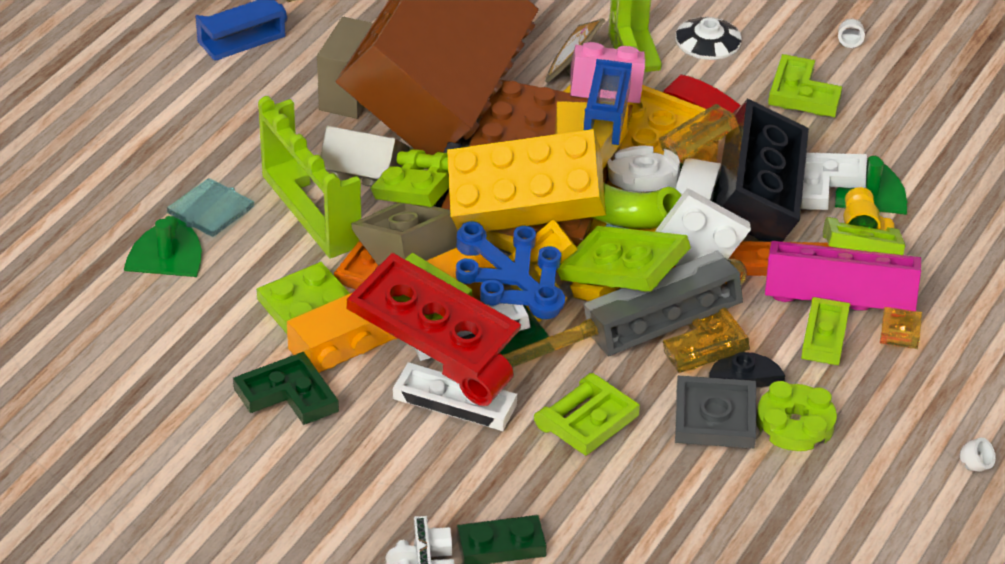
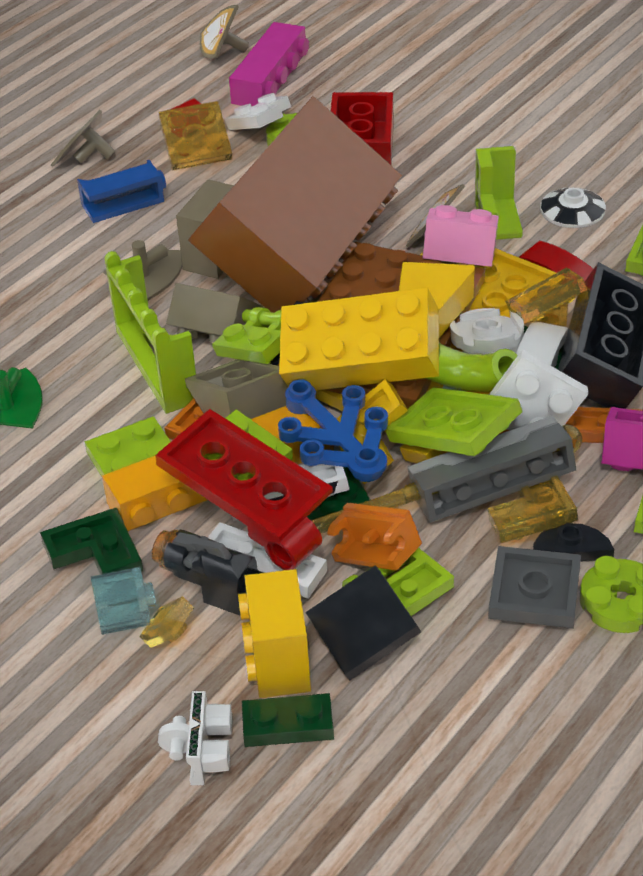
camera: 10 degrees right, 0 degrees up
(210, 207) = (58, 360): clear light blue piece -> none
(304, 105) = (159, 266): none -> dark tan shield
(326, 439) = (122, 600): none -> clear light blue brick
(374, 457) = (167, 623): none -> clear yellow plate
(423, 412) = (207, 564): none -> black plate
(483, 462) = (275, 633): none -> yellow brick
(560, 370) = (374, 536): none -> orange hinge
(560, 449) = (363, 622): none -> black tile
(609, 95) = (453, 257): blue window -> none

